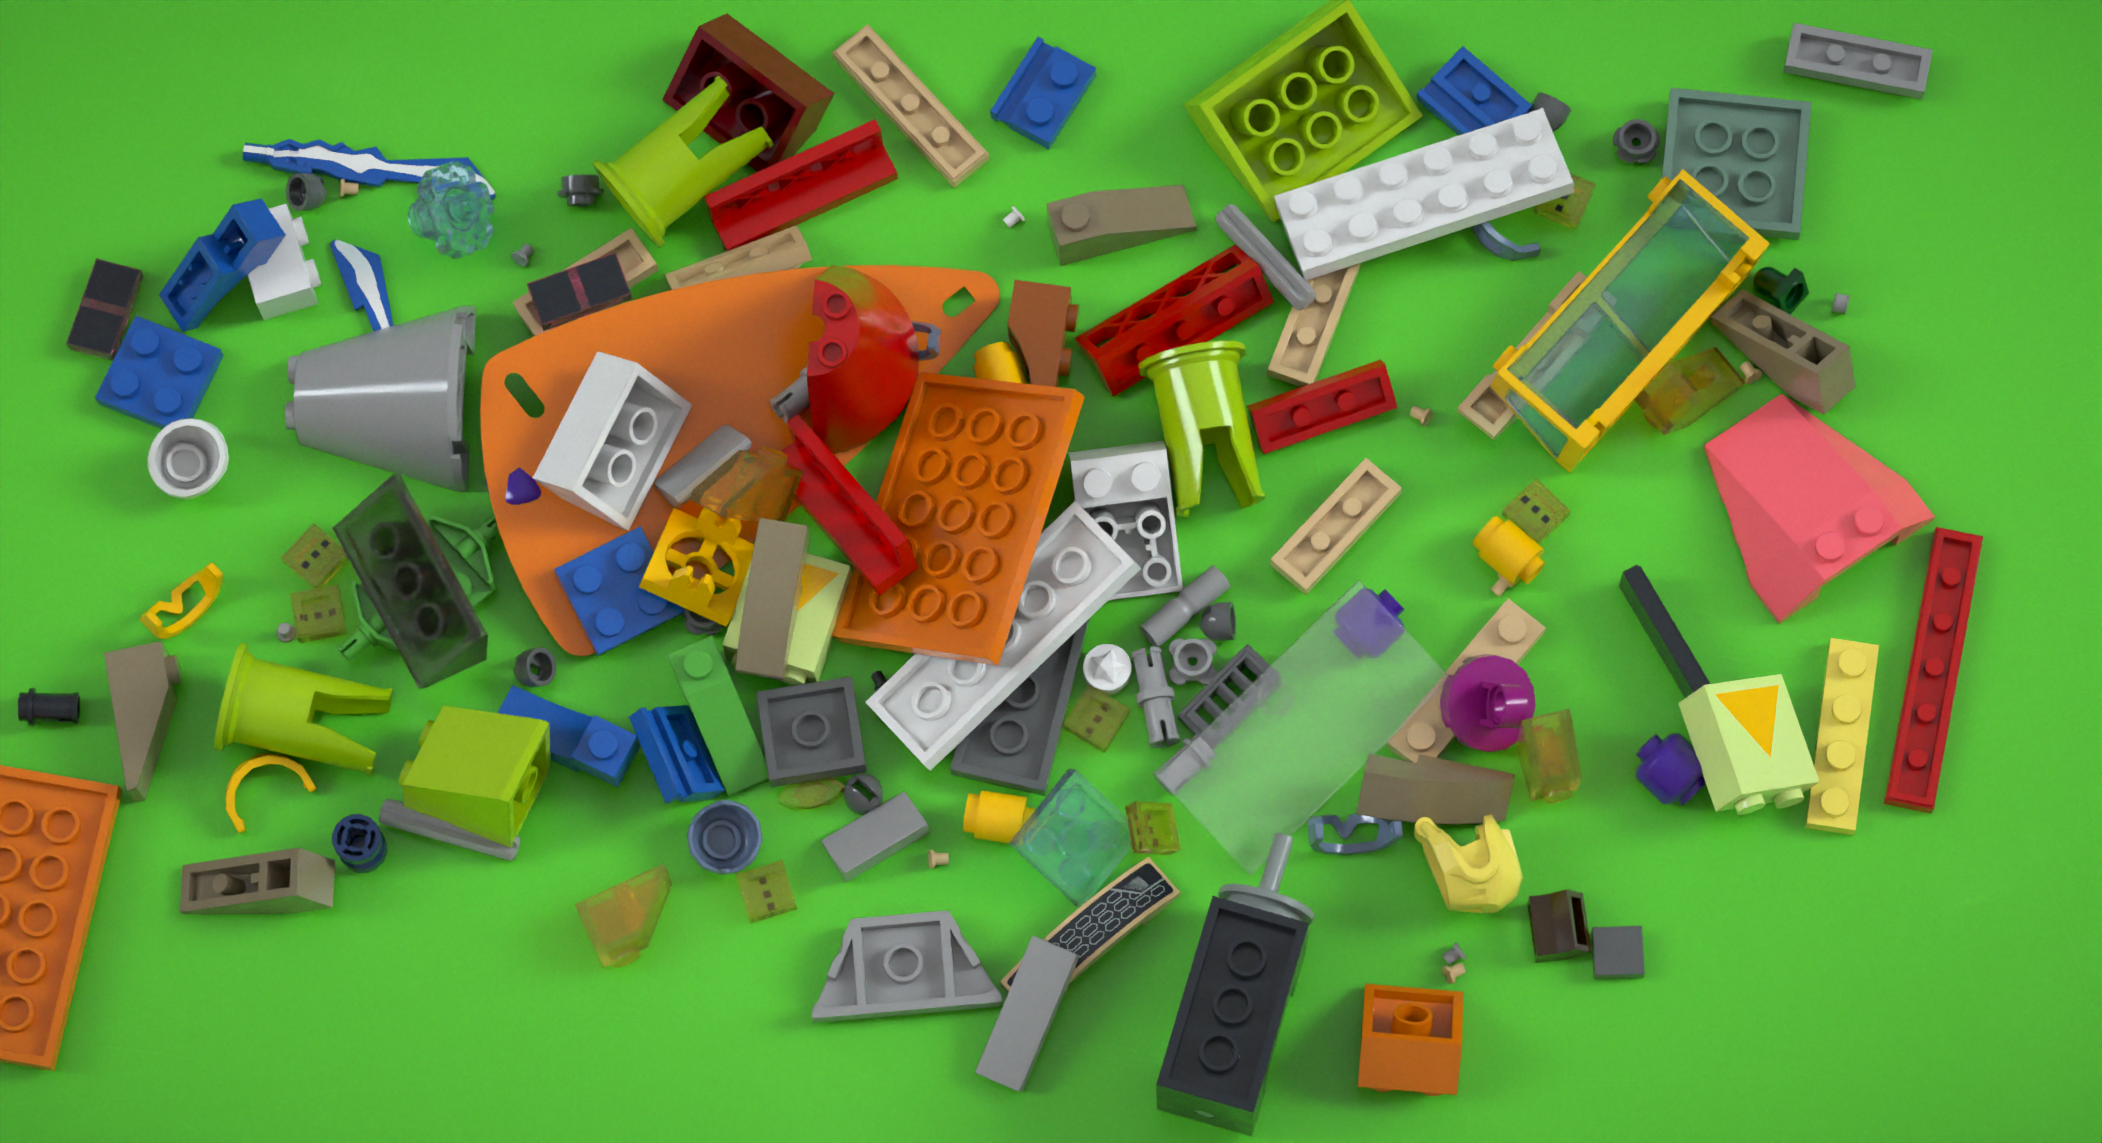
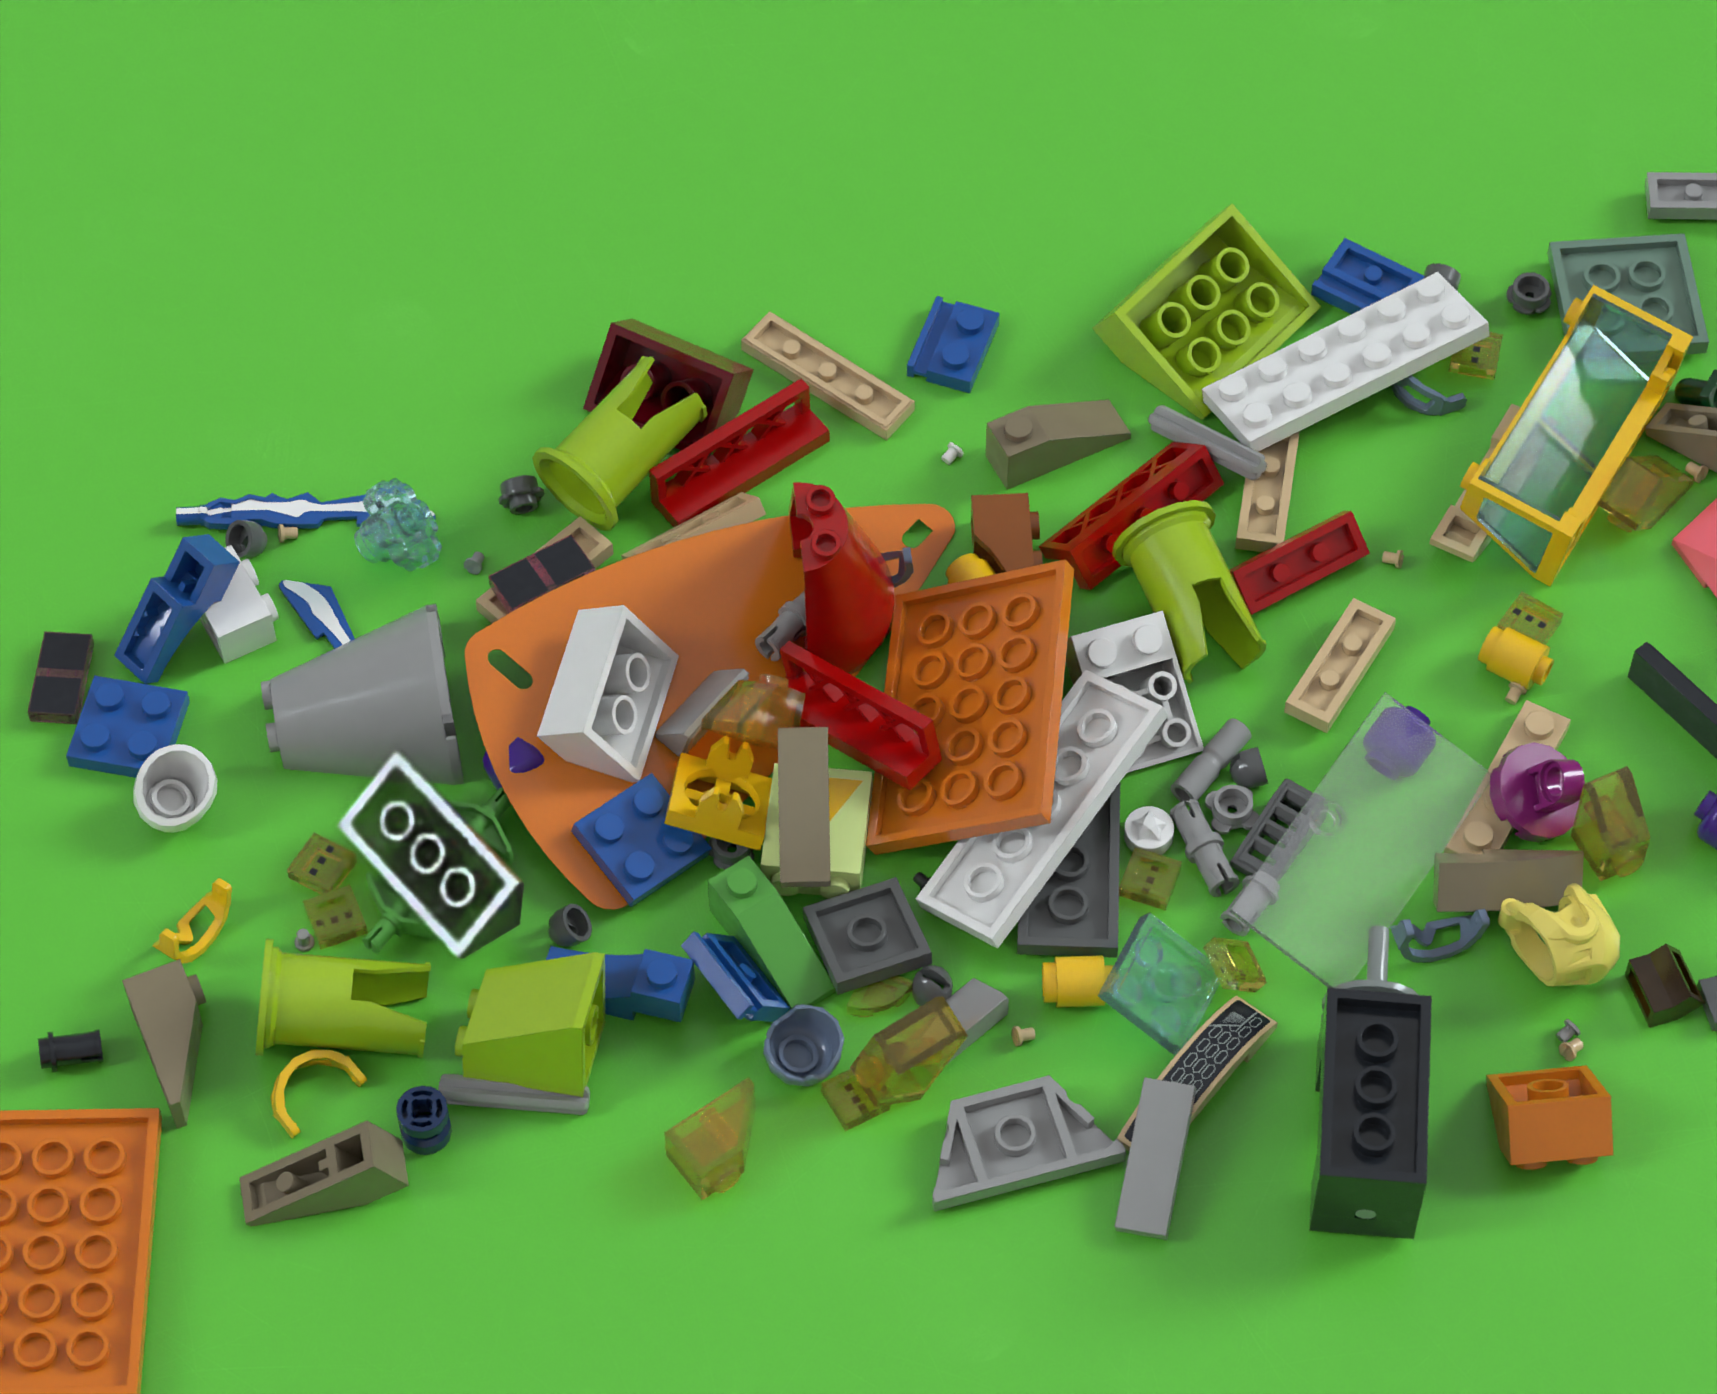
camera: 15 degrees left, 15 degrees down
(817, 869) = (909, 1054): none -> clear yellow slope

